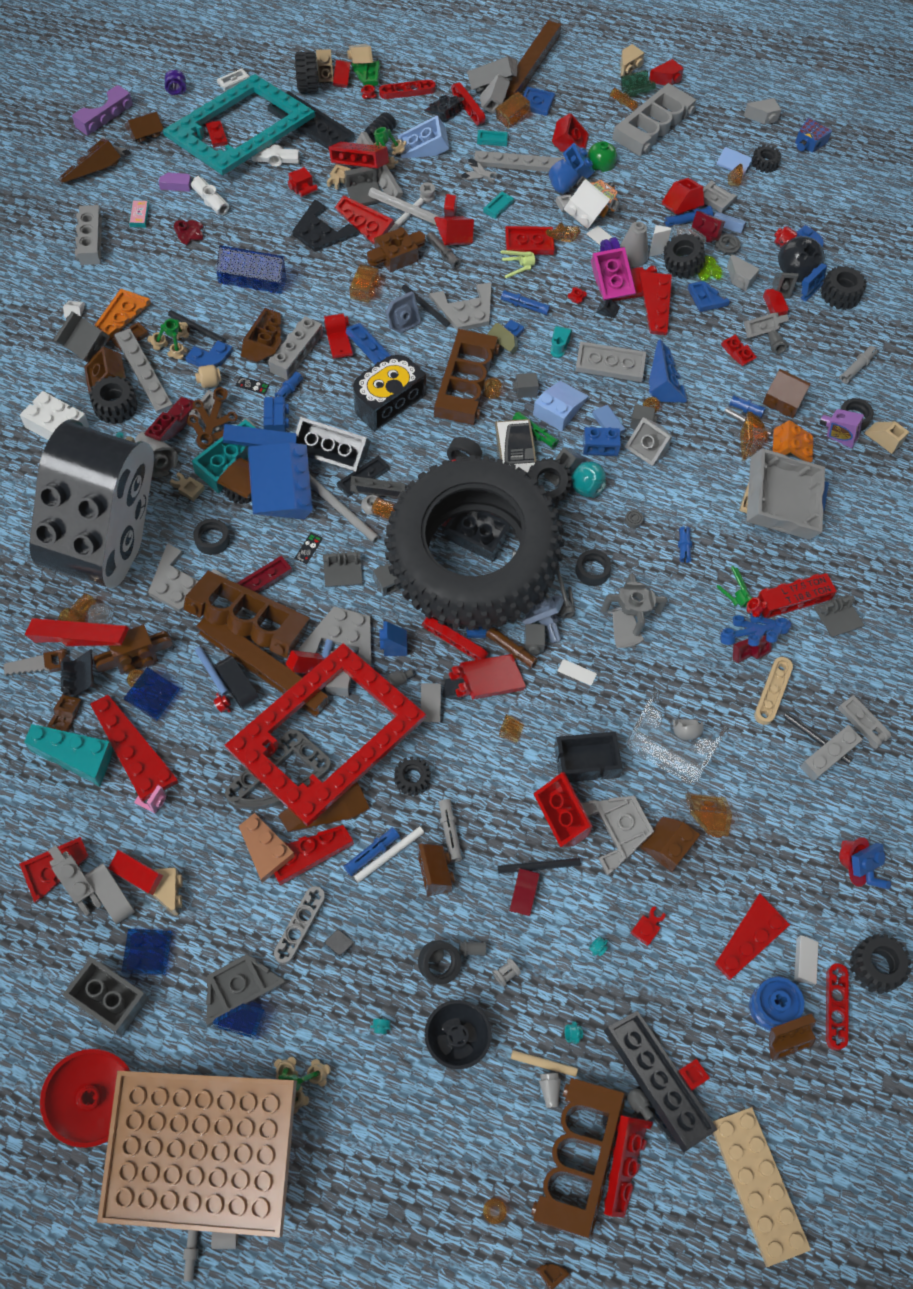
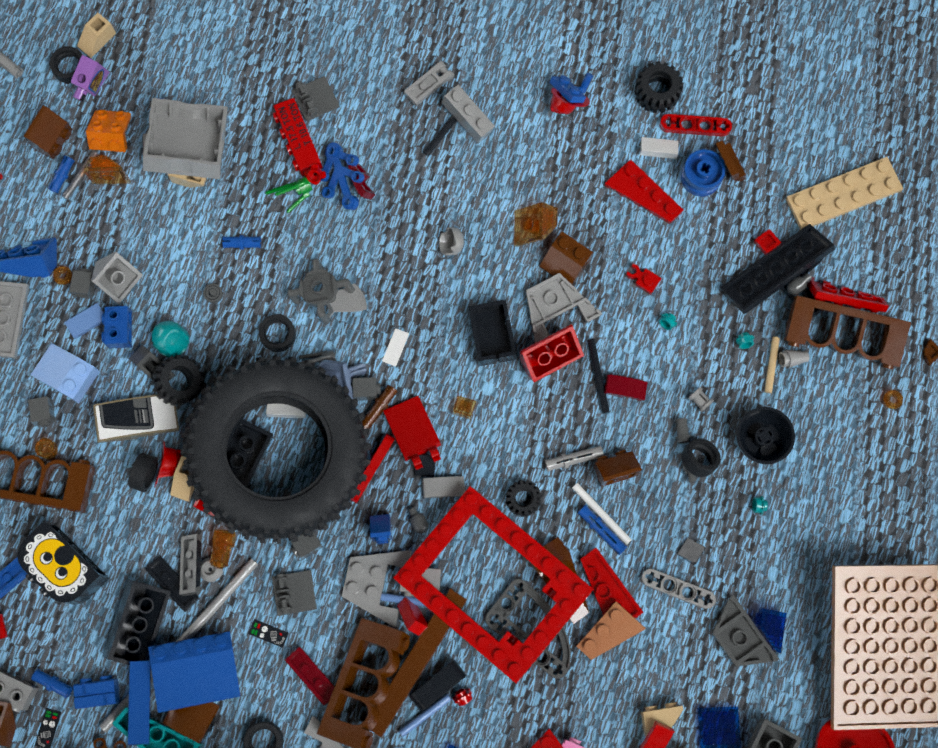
camera: 90 degrees left, 15 degrees up
(316, 1074) = (808, 583): tan plant -> none
(551, 441) = (105, 395): green pin -> none
(667, 750) = (476, 258): clear windscreen -> none
(773, 690) = (403, 162): tan plate -> none

